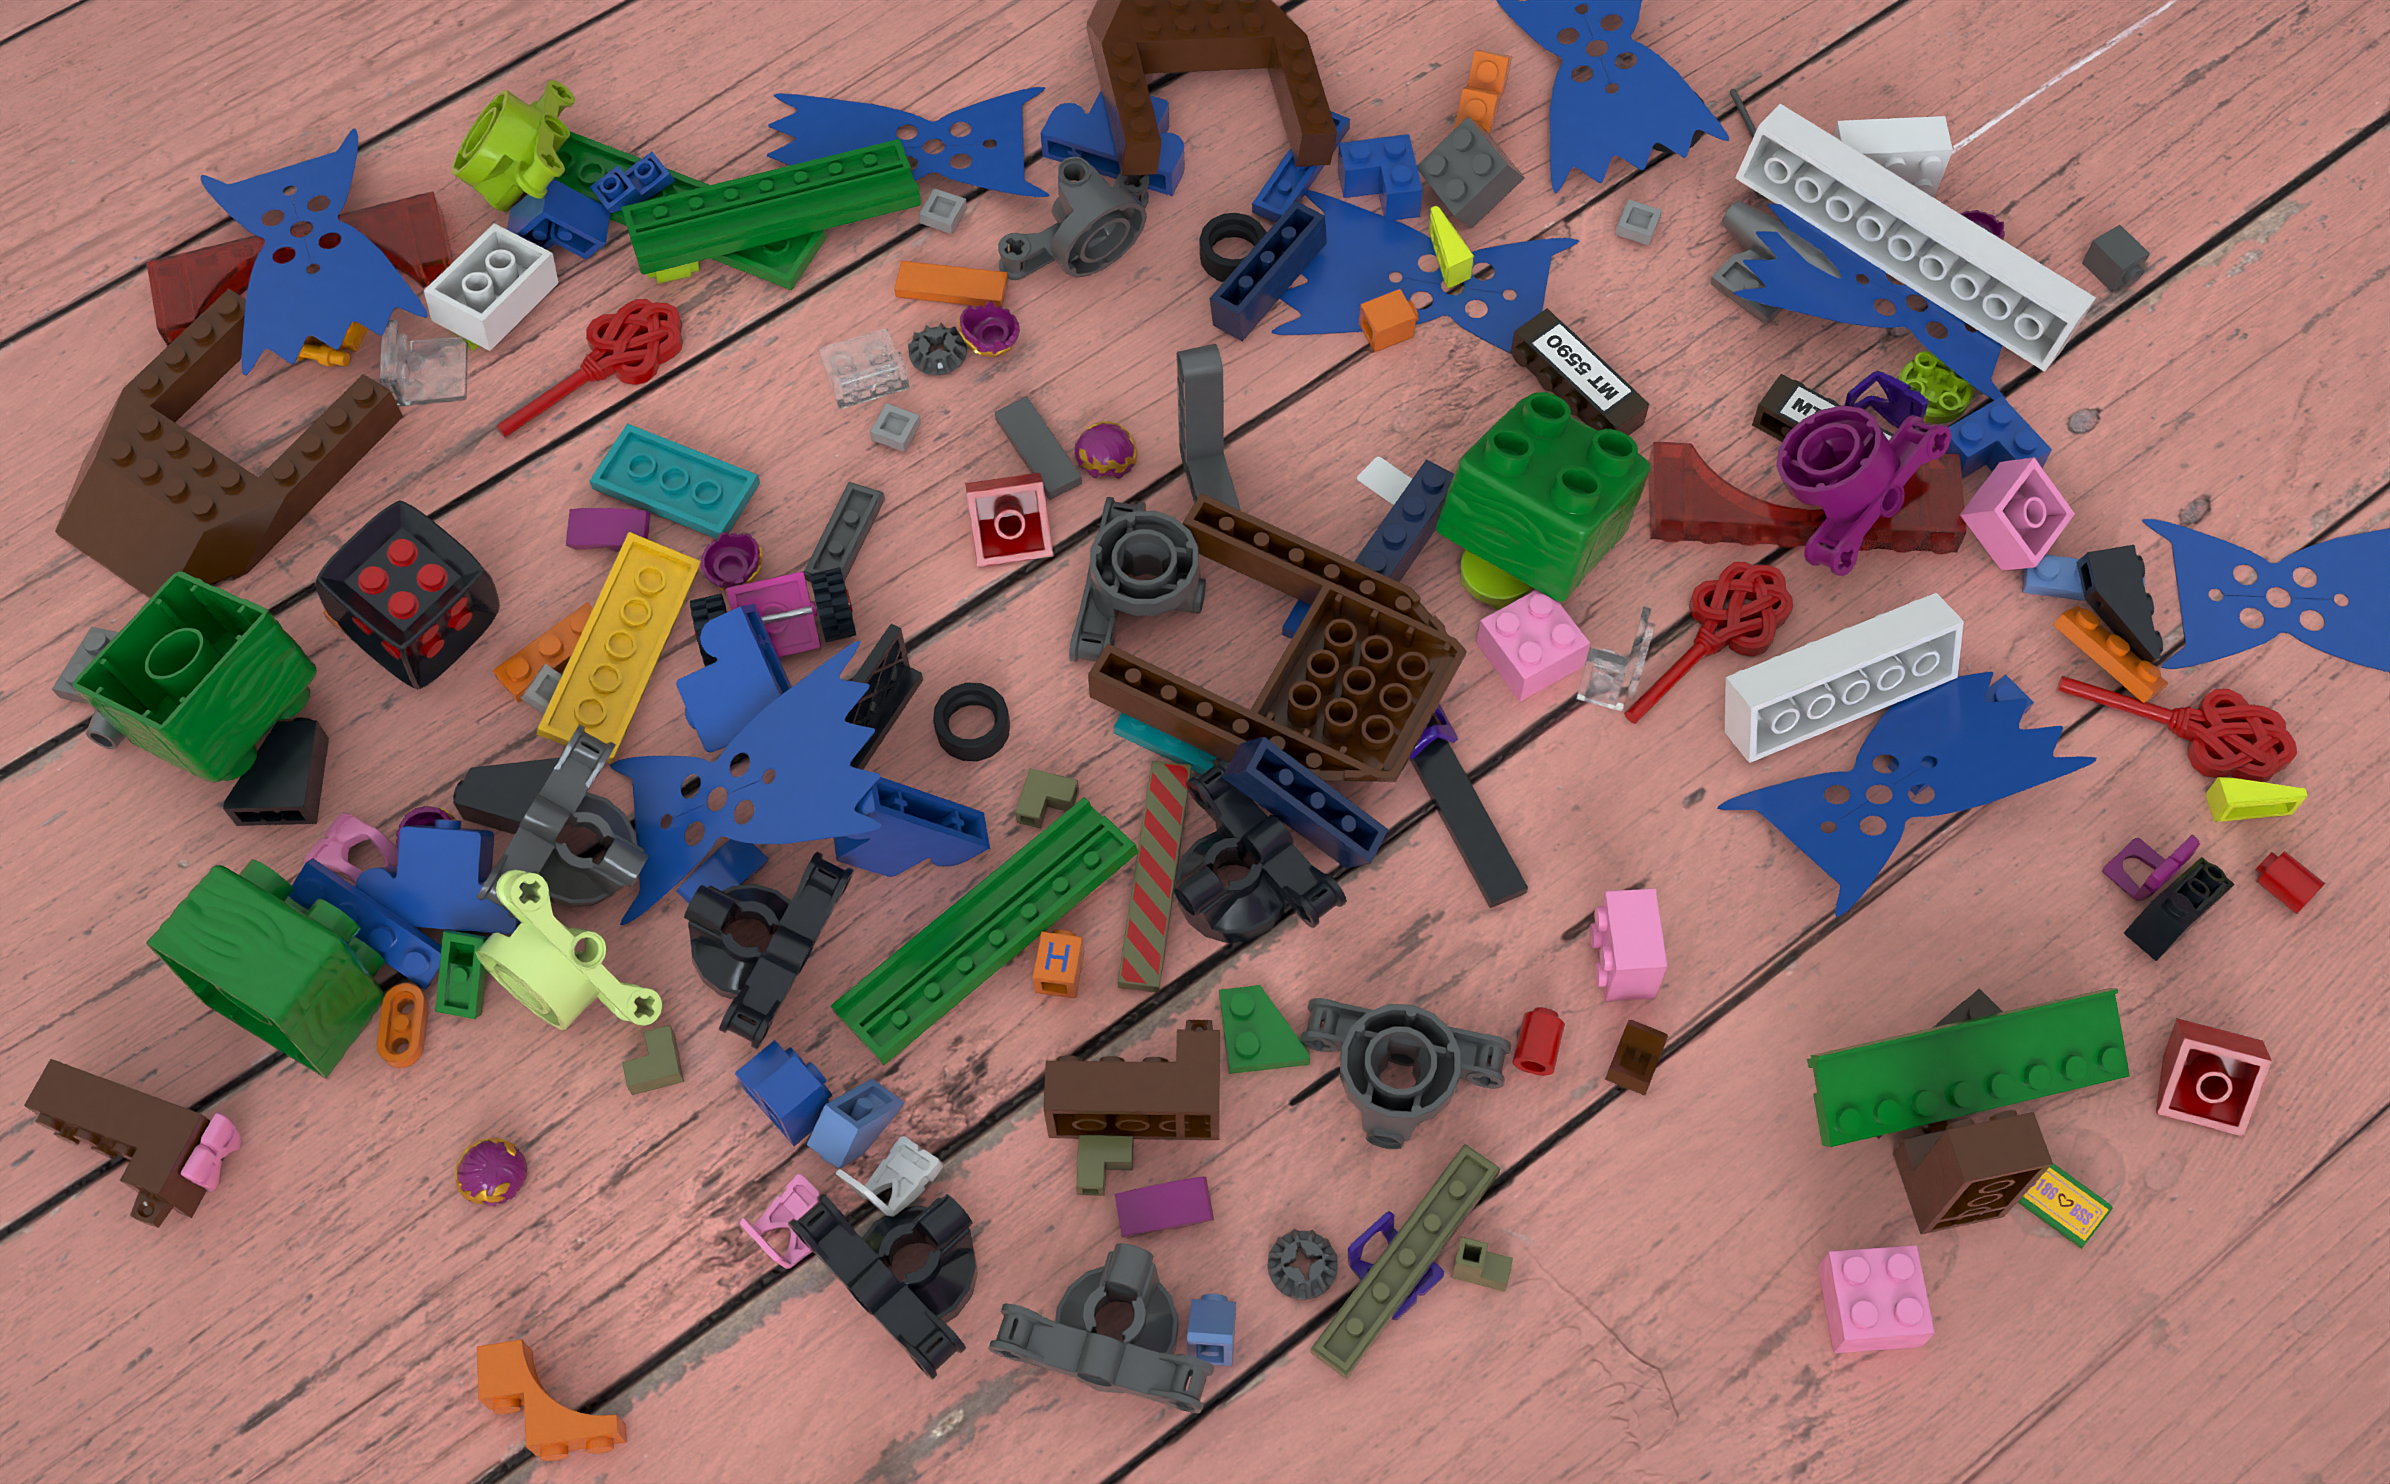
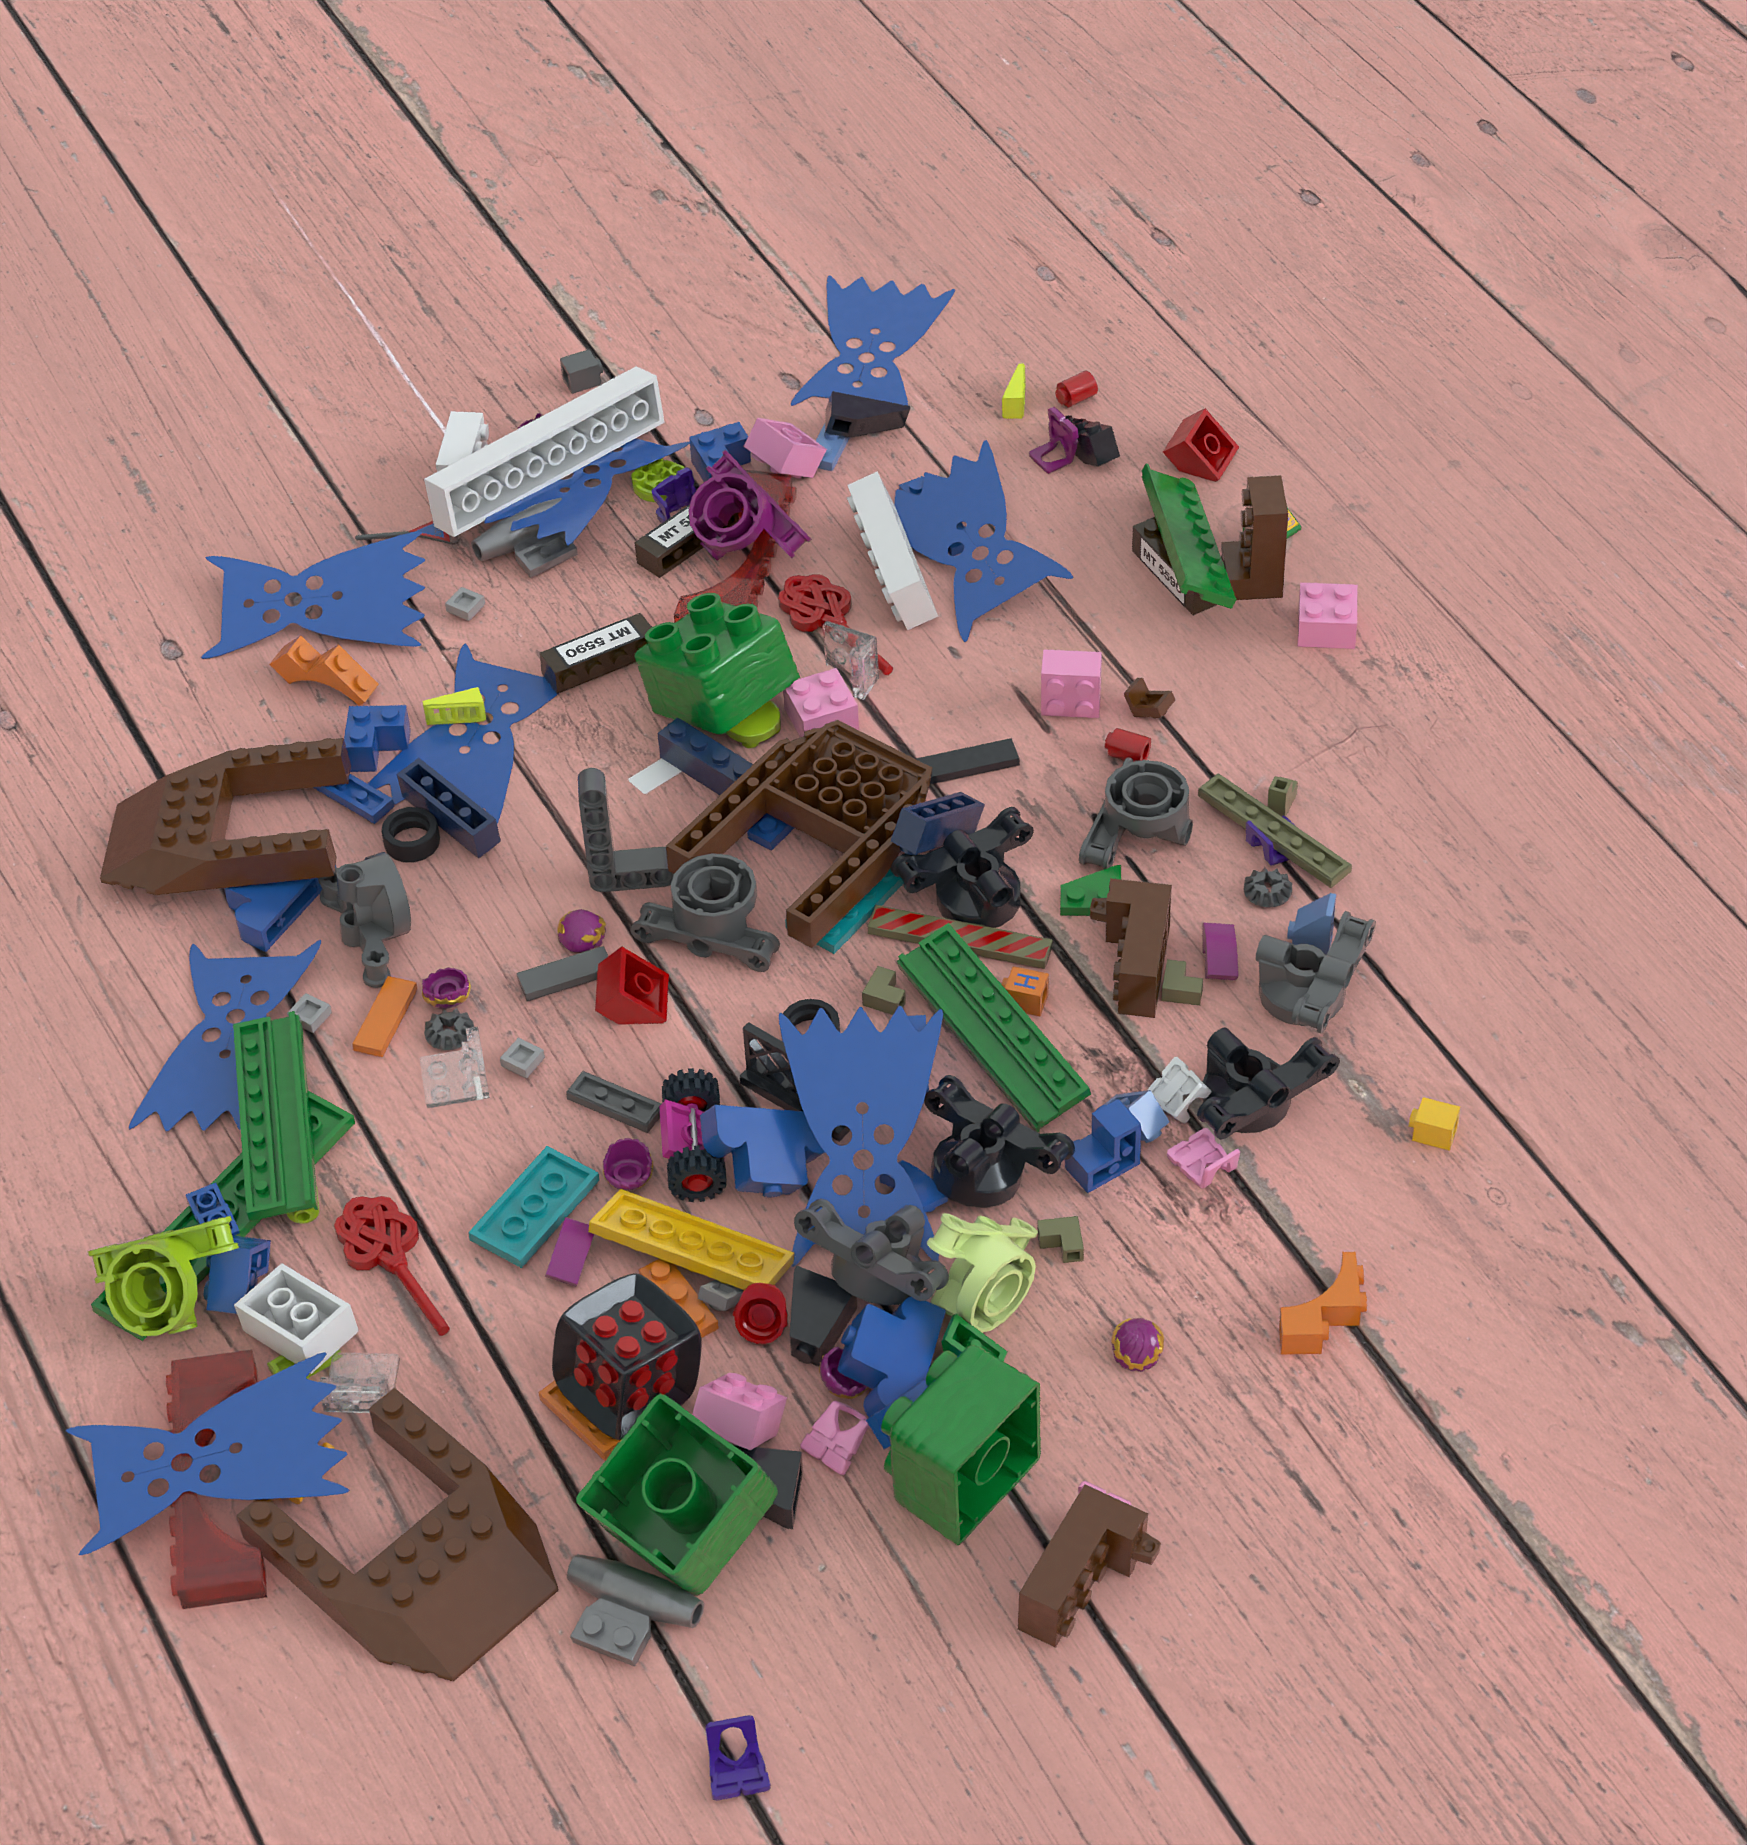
camera: 80 degrees left, 15 degrees down
(357, 730) = (740, 1410): none -> bright pink brick
(513, 736) = (761, 1313): none -> red hat
(1388, 320) = (513, 750): orange brick -> none
(1470, 172) = (397, 676): dark grey brick -> none
(2111, 653) = (894, 433): orange plate -> none
(2215, 734) = (976, 399): red piece -> none

